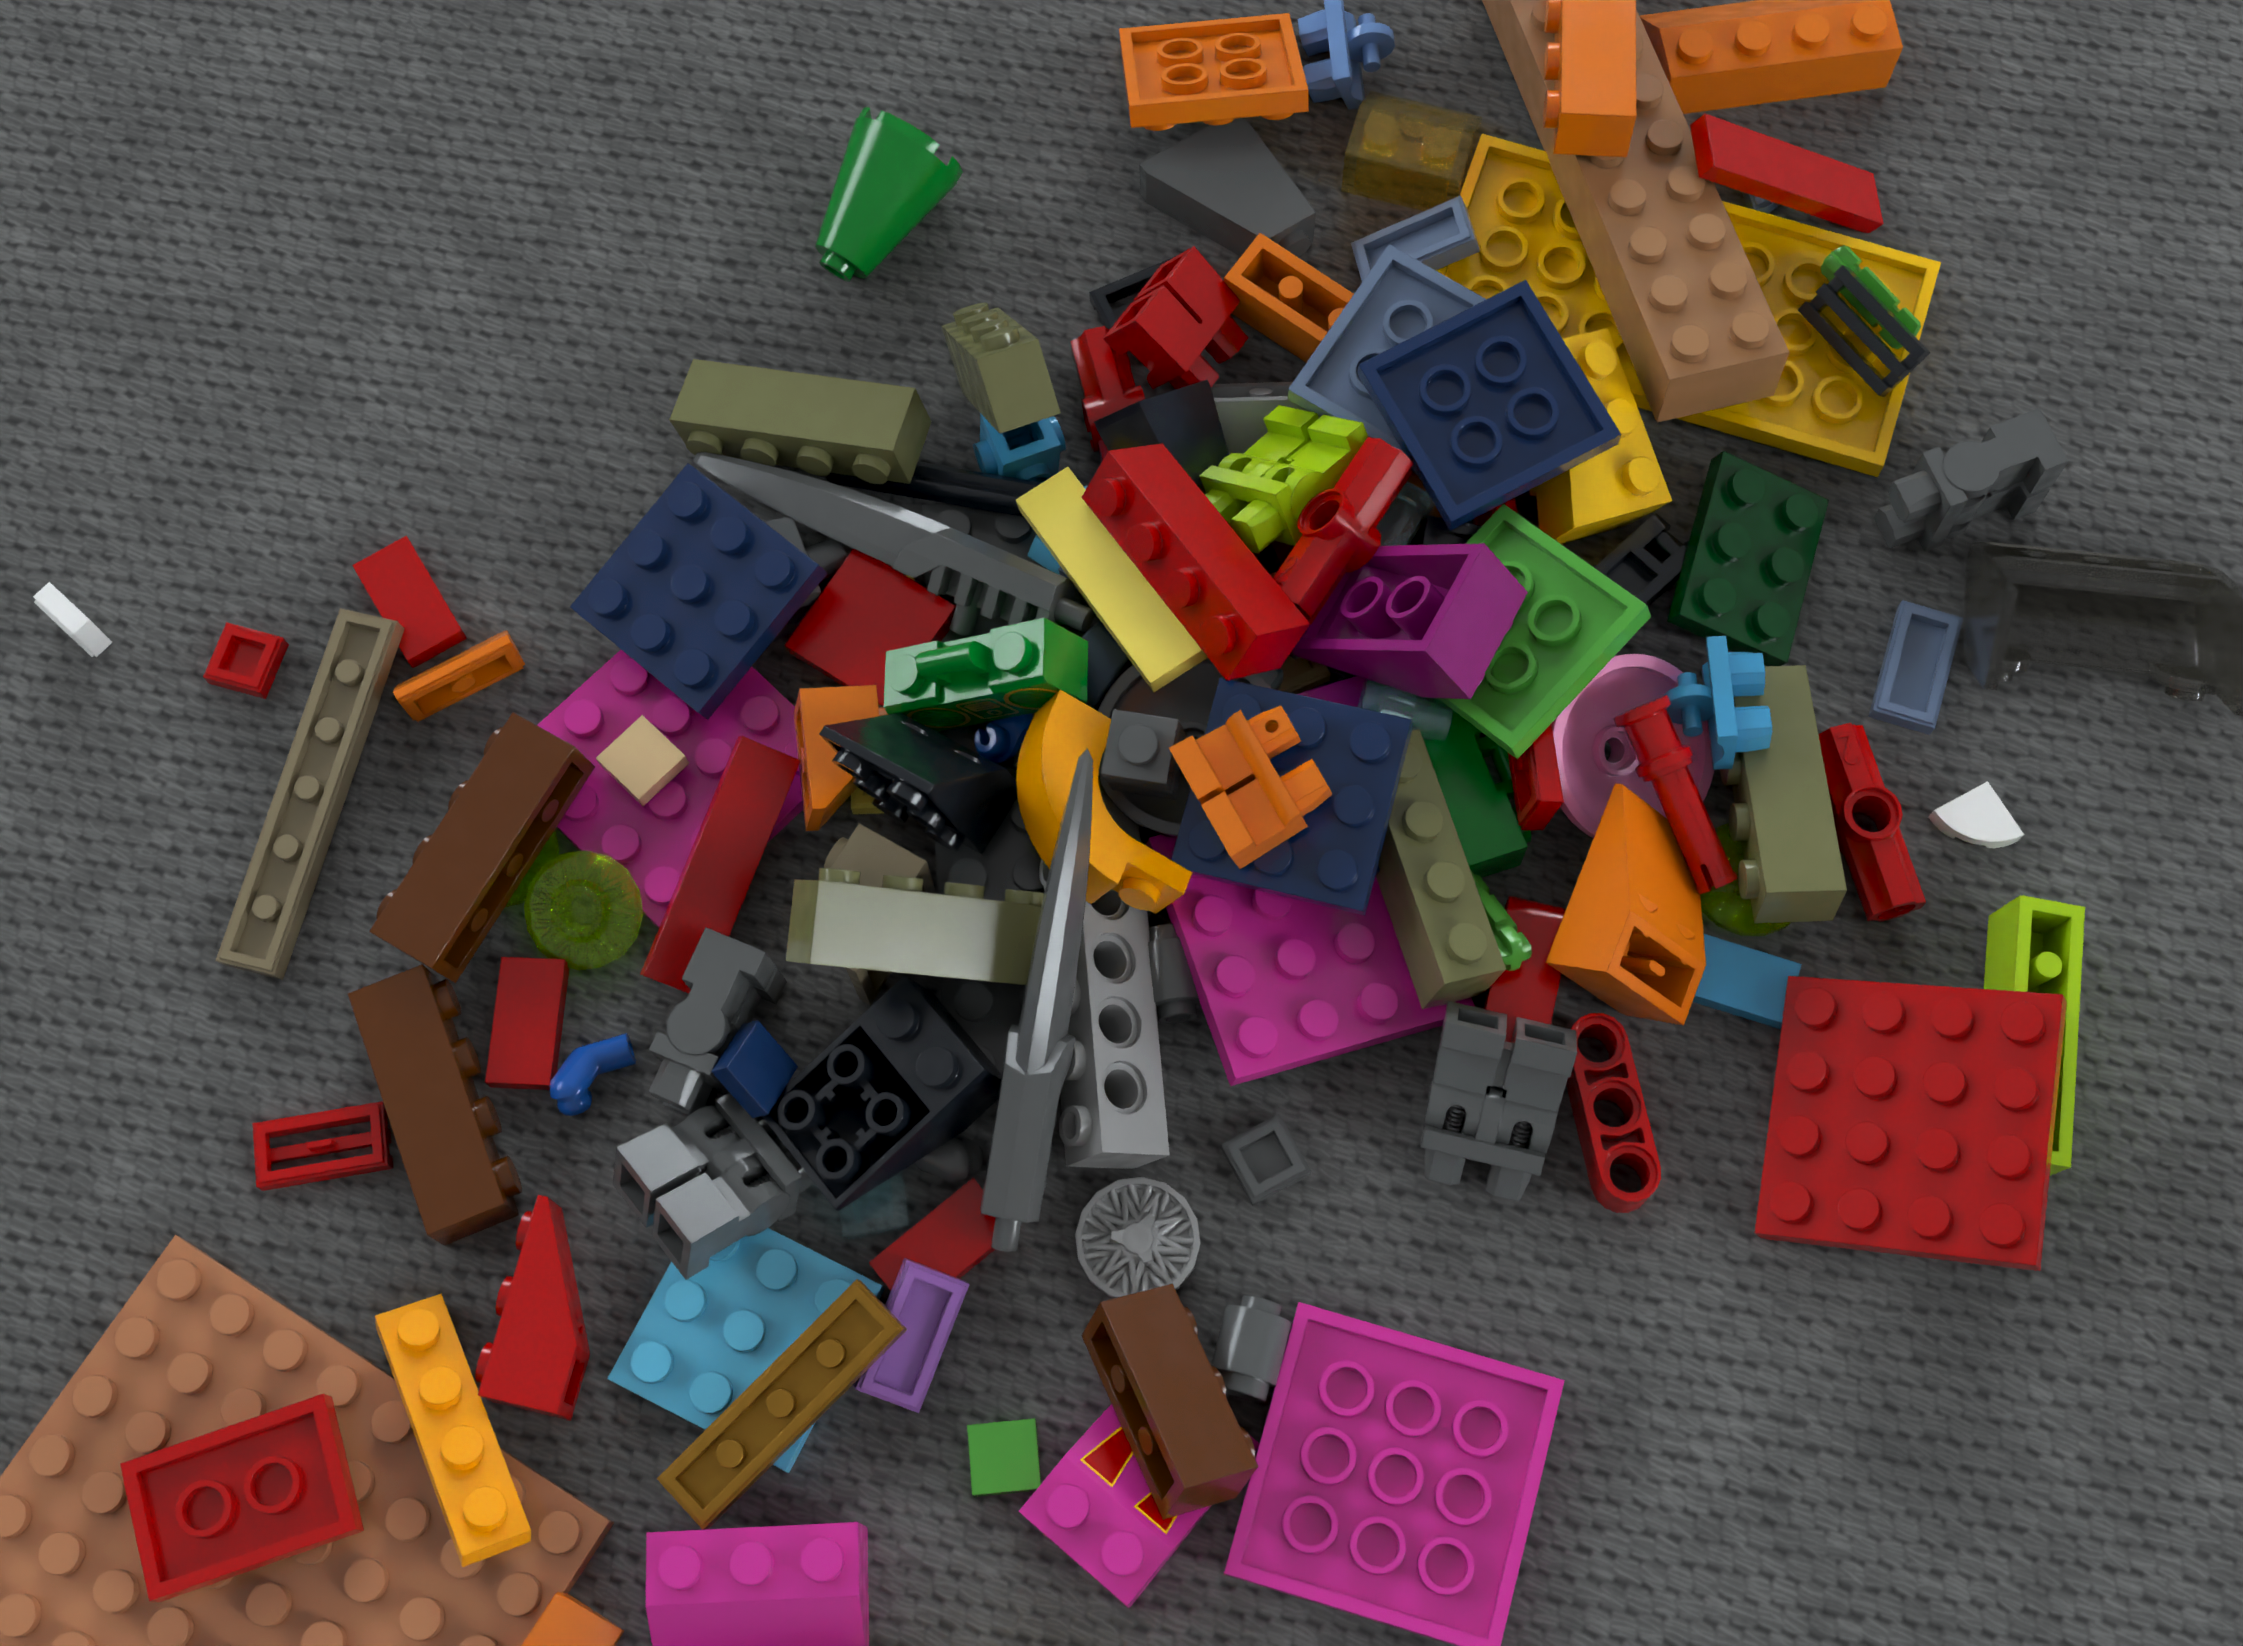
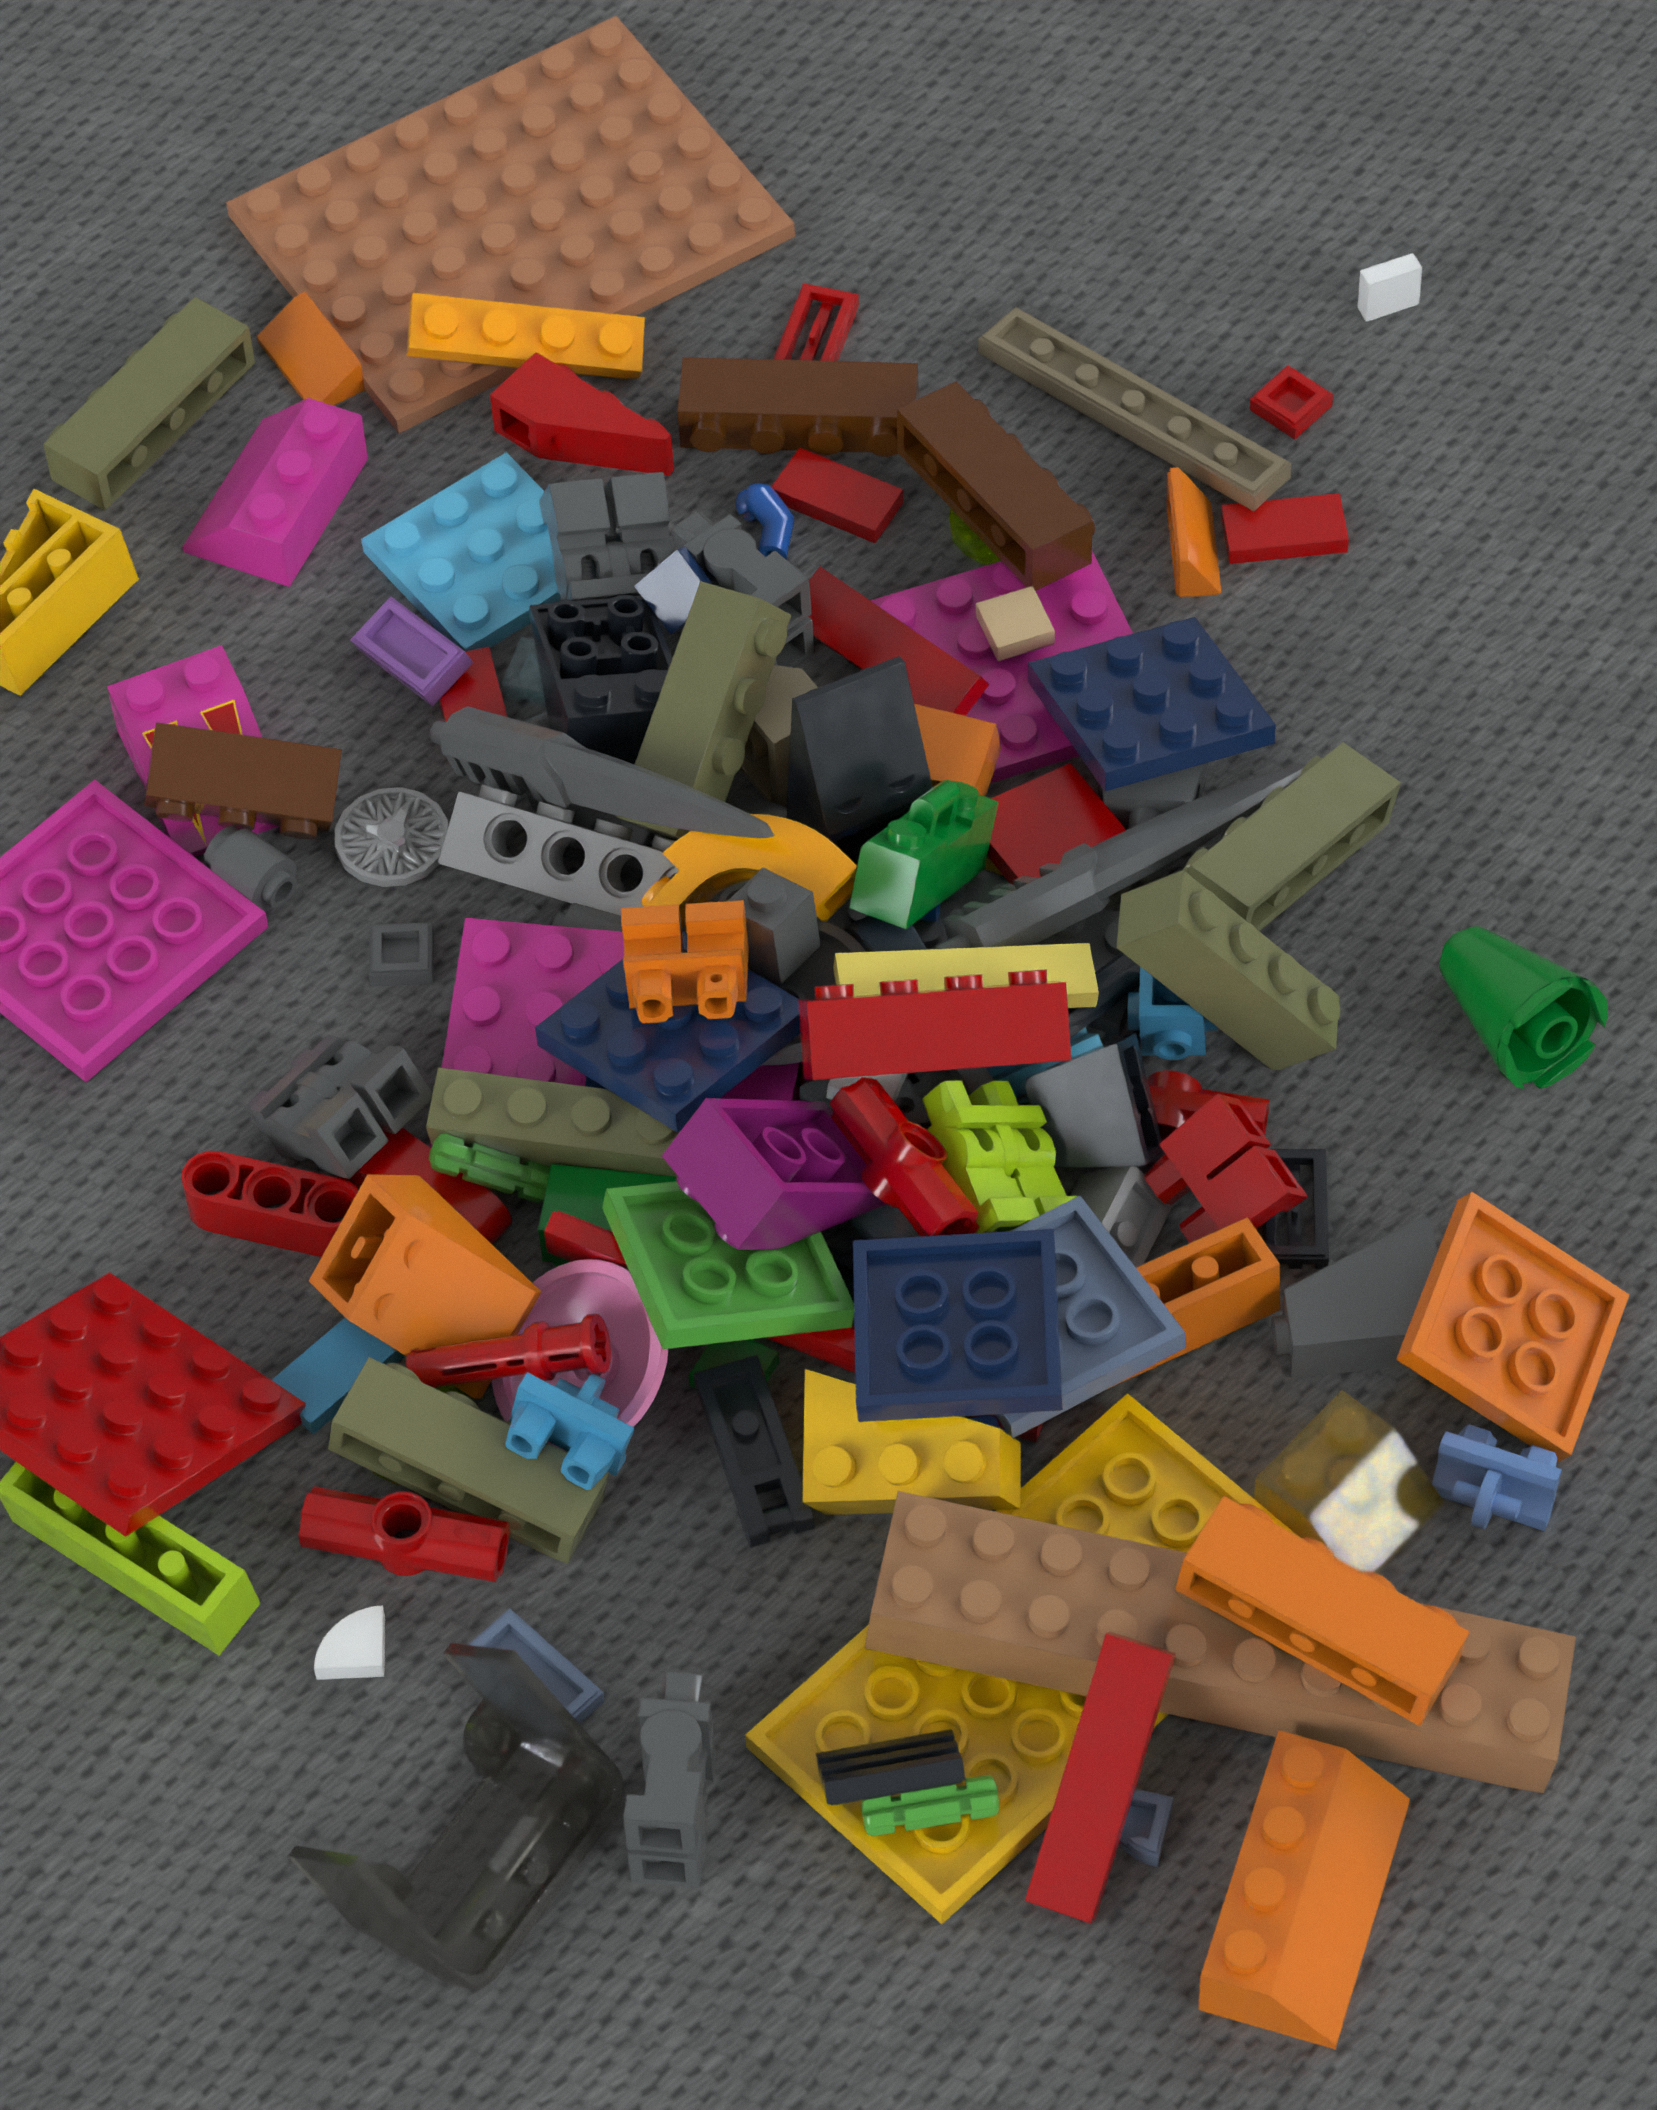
camera: 115 degrees right, 15 degrees down
(241, 1498) = (550, 195): red plate -> none
(583, 909) = (910, 555): clear neon green wheel -> none
(781, 1404) = (407, 540): pearl gold tile -> none
(1004, 1457) = (281, 685): bright green tile -> none
(1432, 237) = (1219, 1436): sand blue tile -> none
(1748, 559) = (718, 1570): dark green plate -> none

